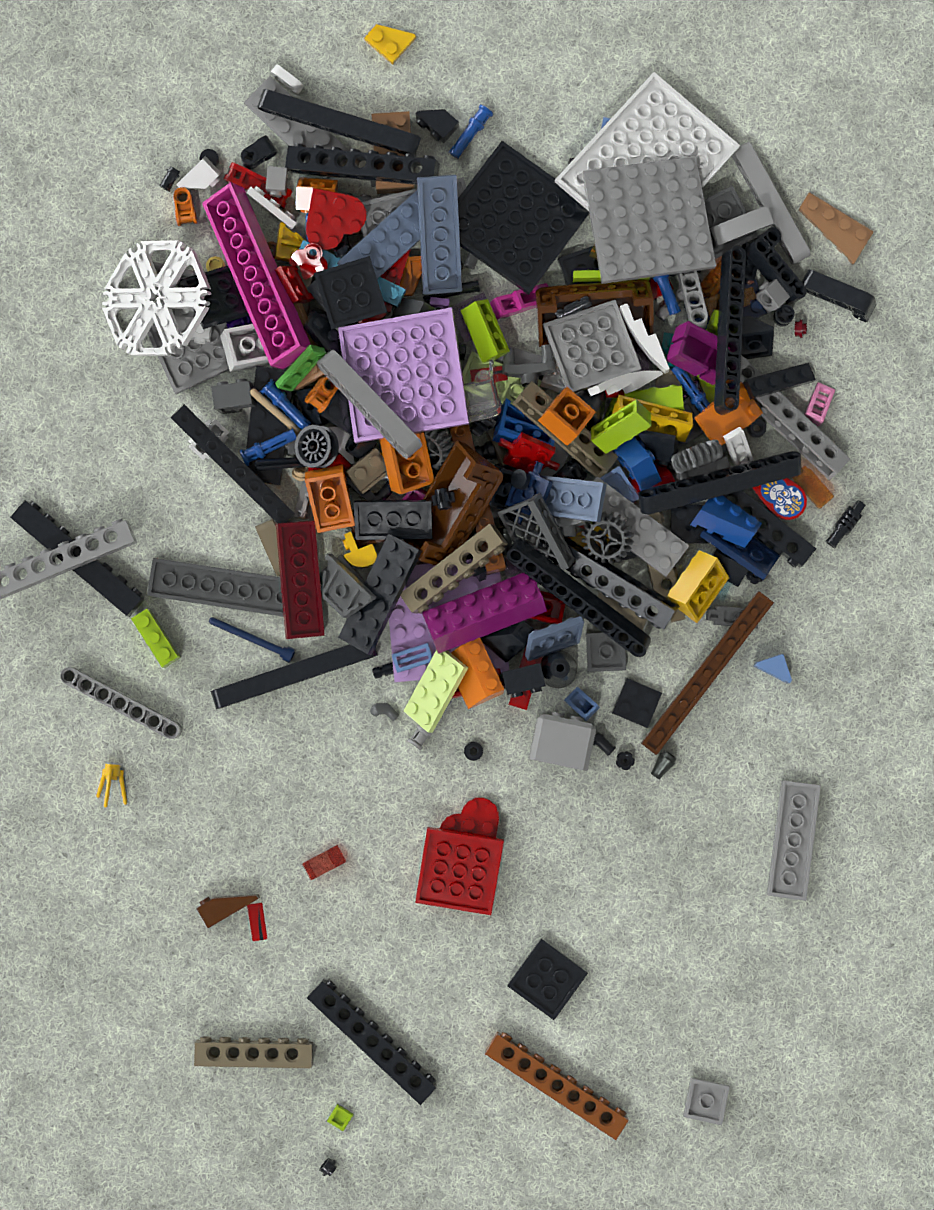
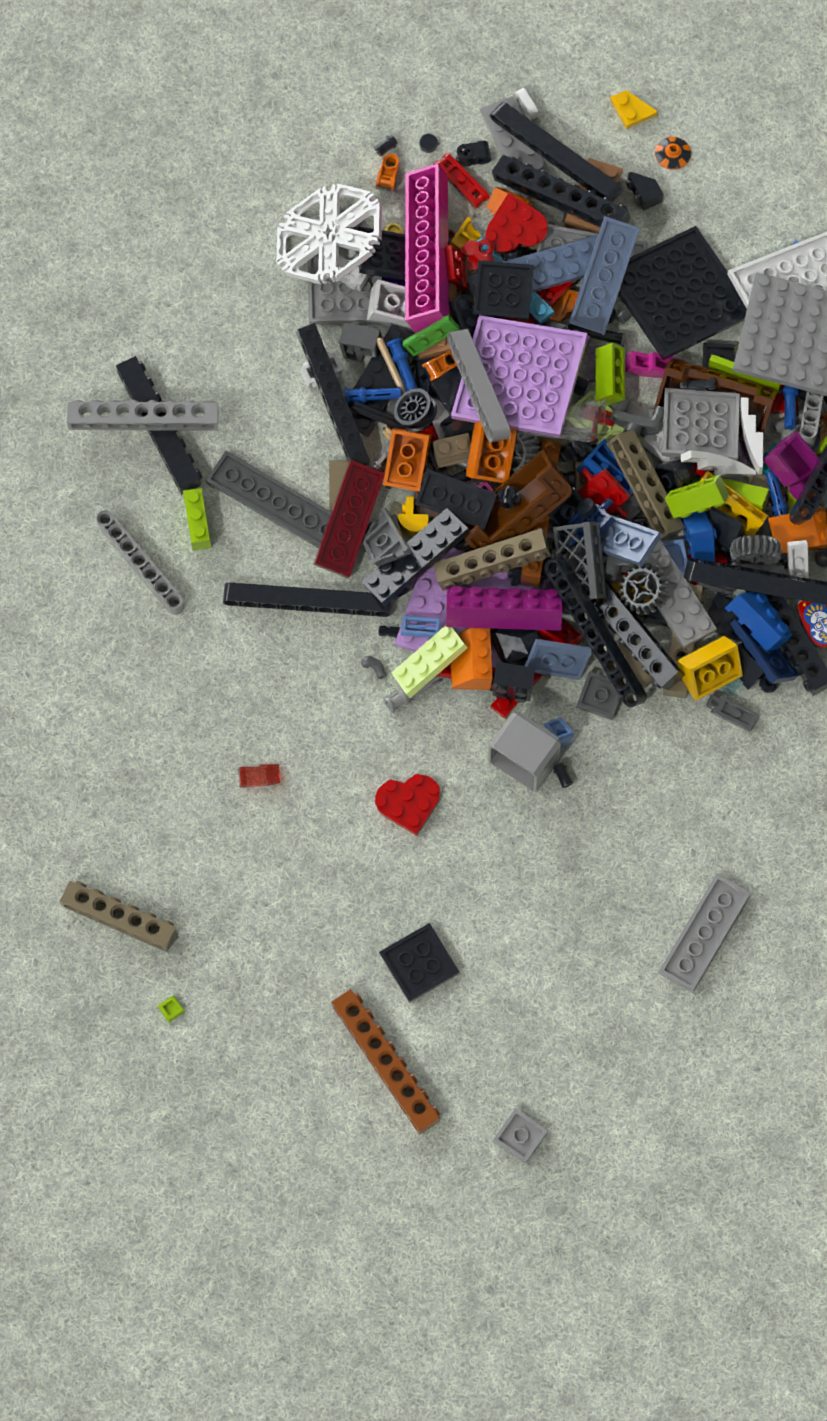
camera: 25 degrees right, 15 degrees down
(110, 773) = (101, 619): yellow plant -> none
(201, 176) = (415, 152): white slope -> none
(221, 907) = (148, 775): reddish brown slope -> none
(257, 921) = (174, 804): red sticker -> none
(272, 206) = (465, 200): white plate -> none
(276, 181) = (479, 180): light grey brick -> none
(286, 652) = (307, 580): dark blue piece -> none
(328, 1167) = (139, 1048): black plate -> none
(418, 1092) = (255, 1014): black brick -> none
(447, 80) = (670, 159): none -> dish
(459, 871) = (380, 830): red plate -> none
(475, 124) = (678, 204): blue pin -> none
(479, 751) = (443, 738): black plate -> none
(552, 676) = (550, 693): black cone -> none
(567, 416) = (651, 467): orange brick -> none
(625, 765) = (576, 794): black plate -> none
(637, 703) = (610, 753): black plate -> none
(663, 764) = (611, 815): pearl dark grey cone -> none
(707, 672) = (686, 749): reddish brown plate -> none
(776, 667) = (751, 770): medium blue slope -> none

